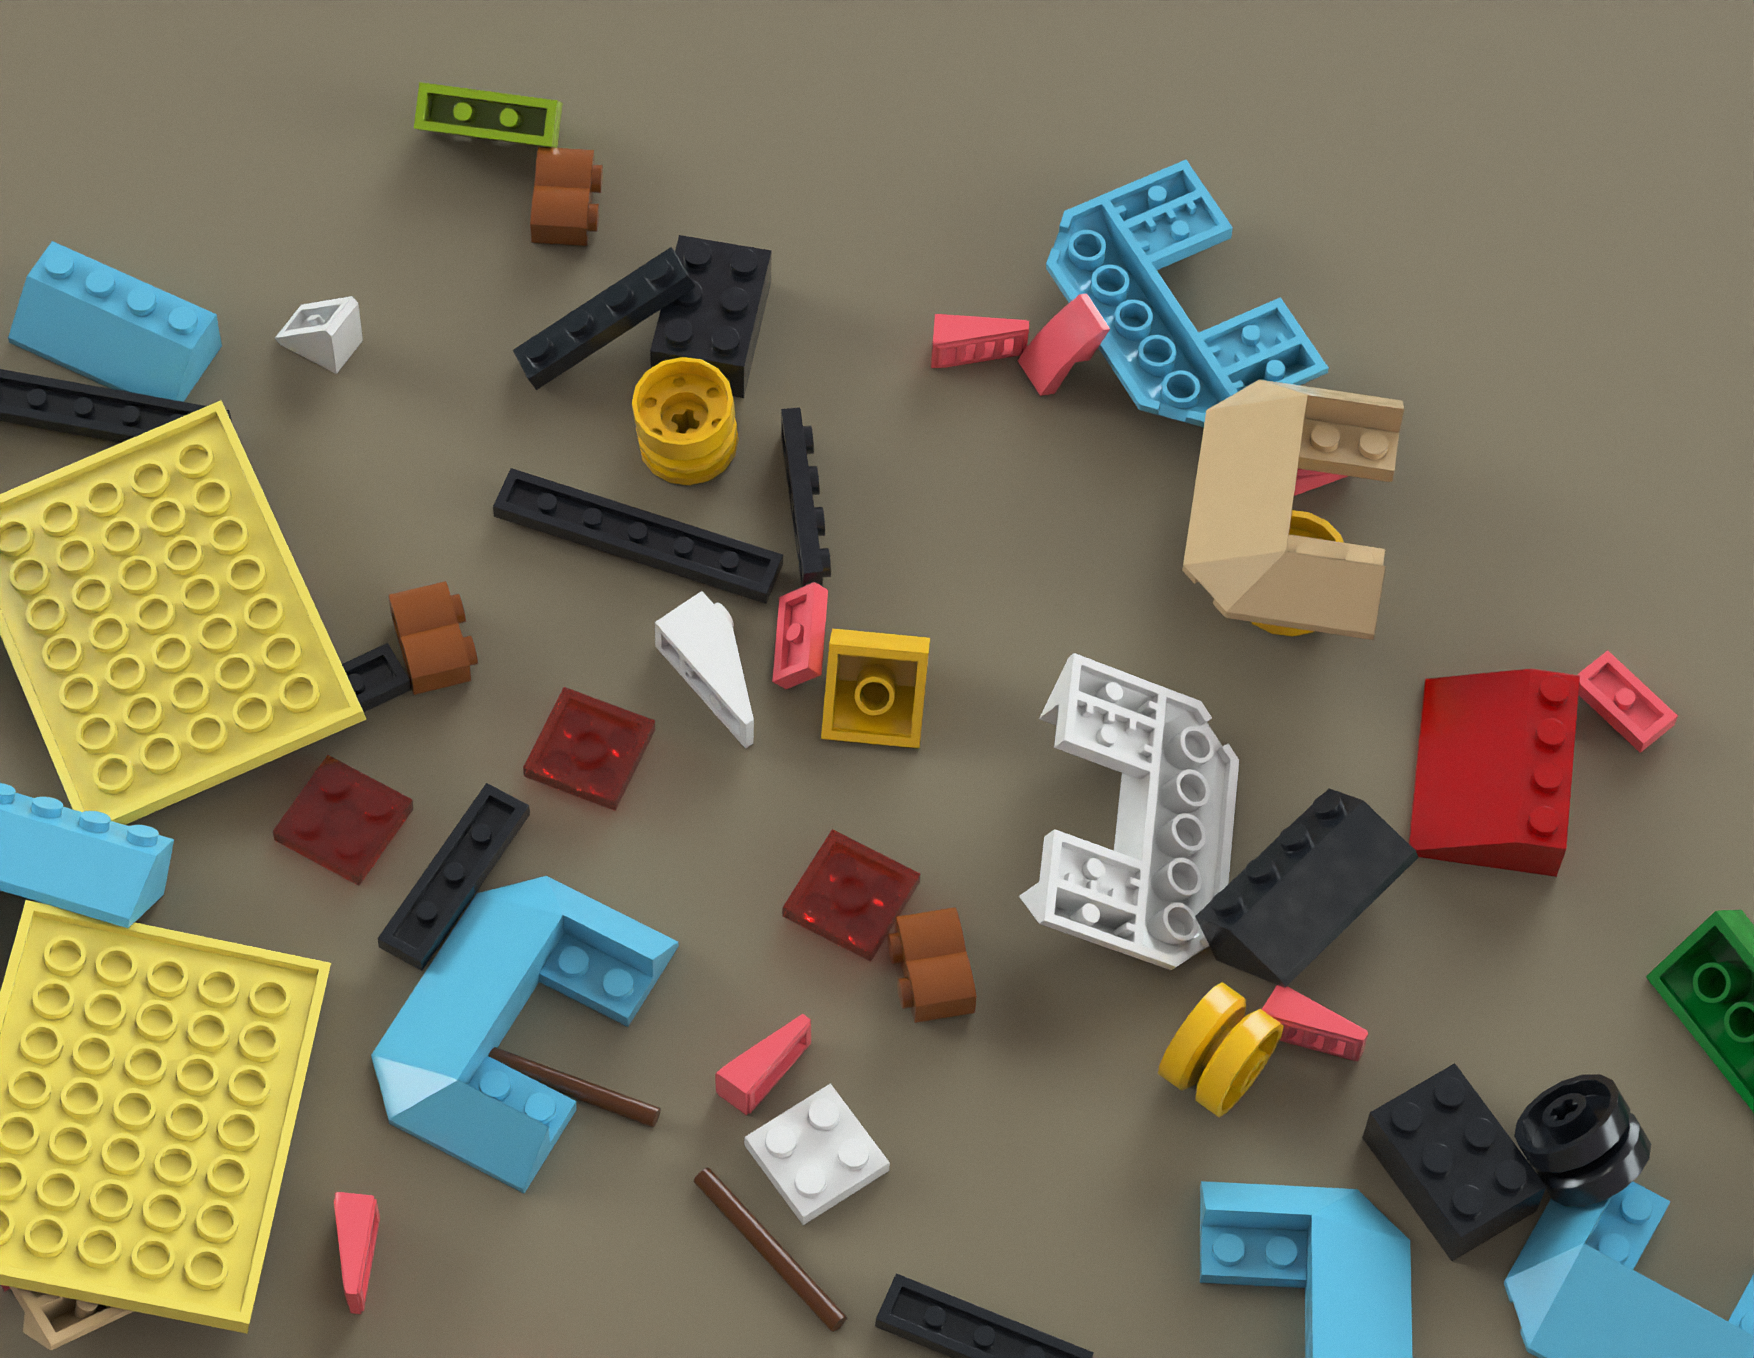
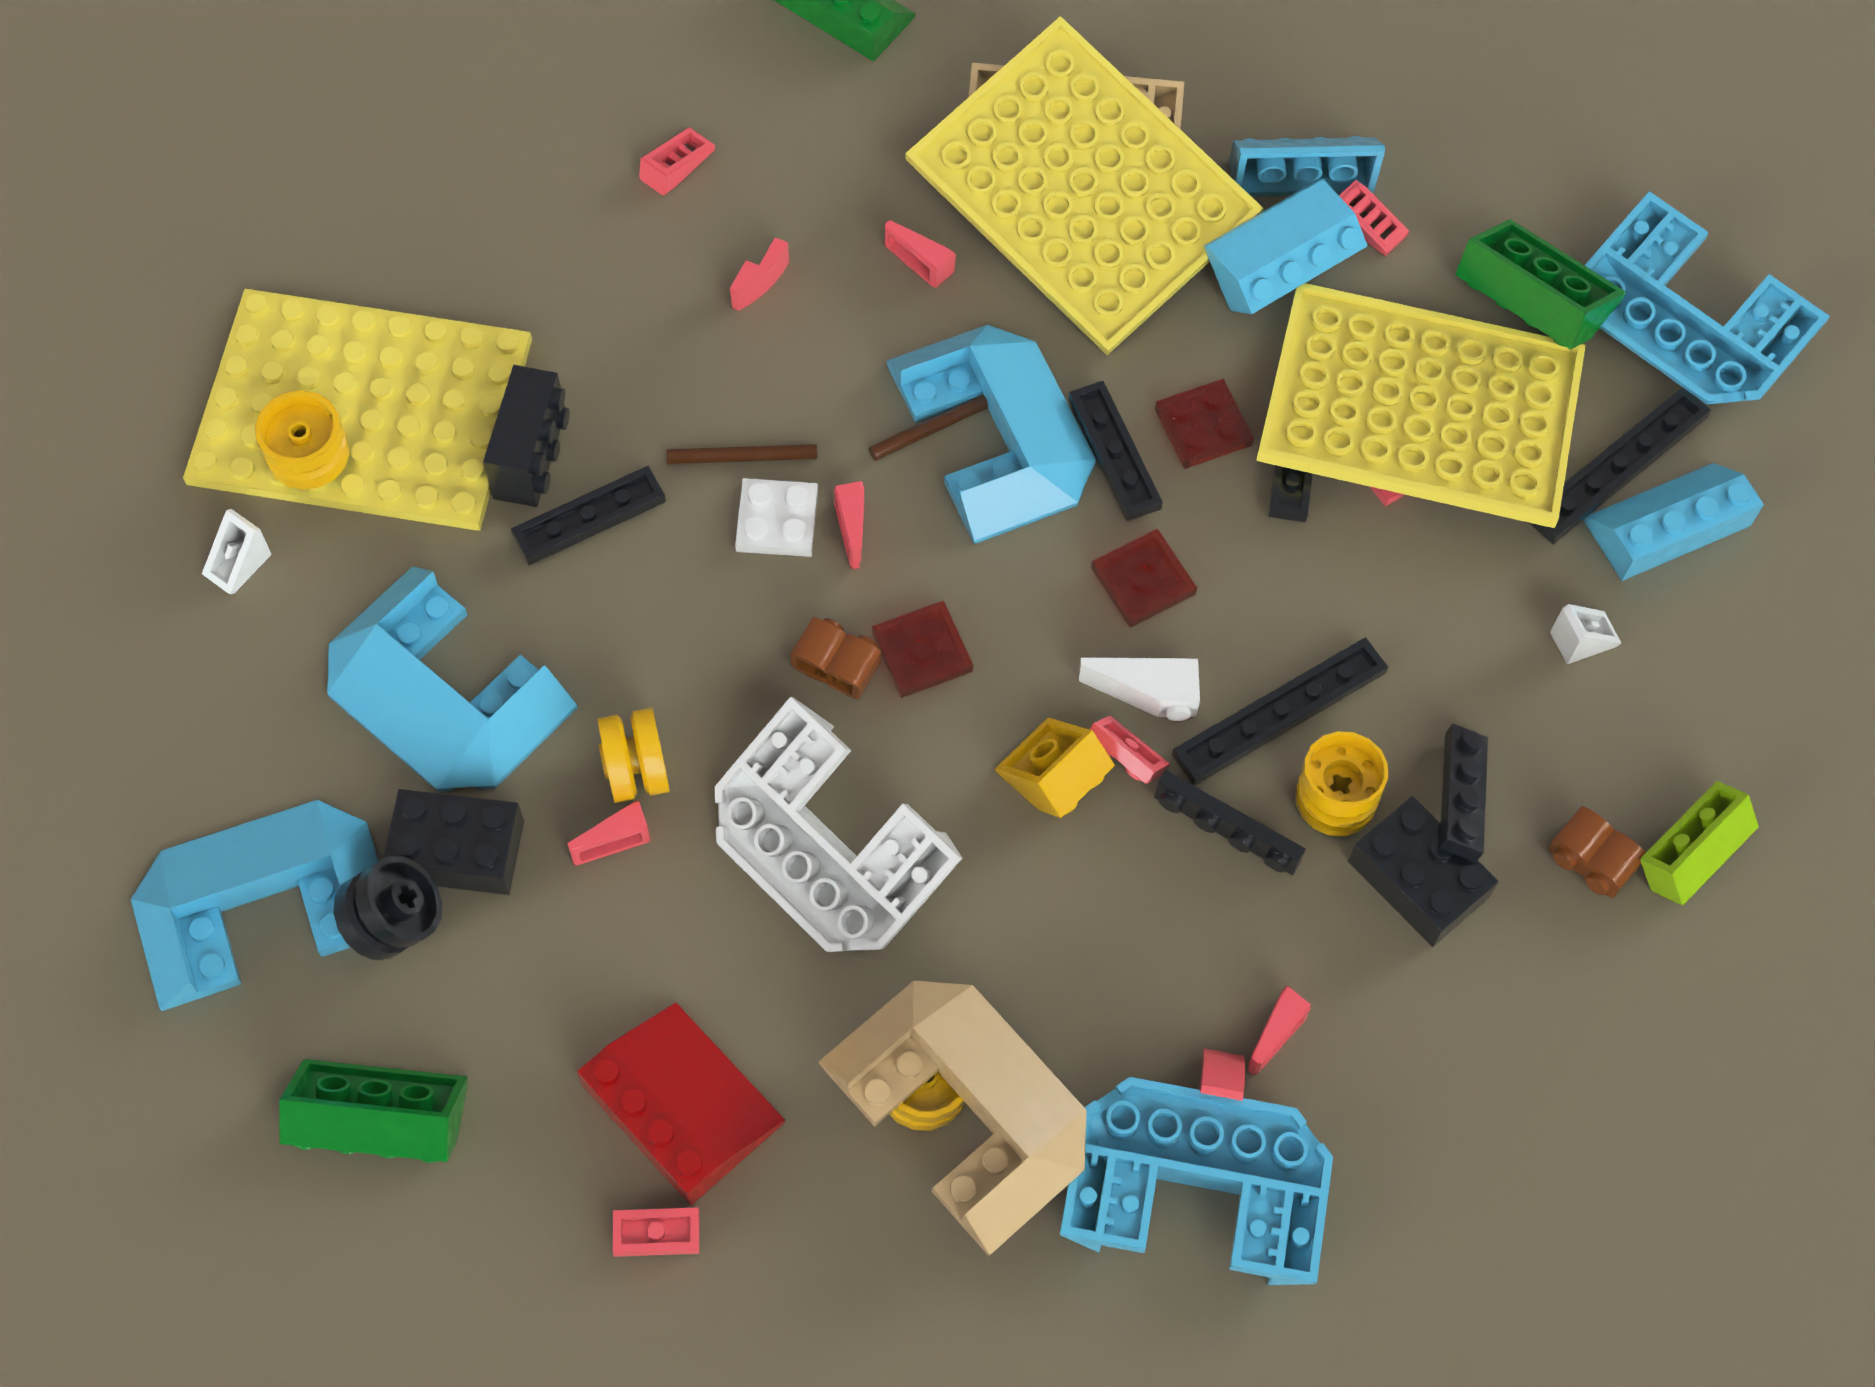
camera: 130 degrees right, 5 degrees up
(431, 637) = (1293, 542): dark orange brick -> none
(1305, 888) = (693, 895): black slope -> none

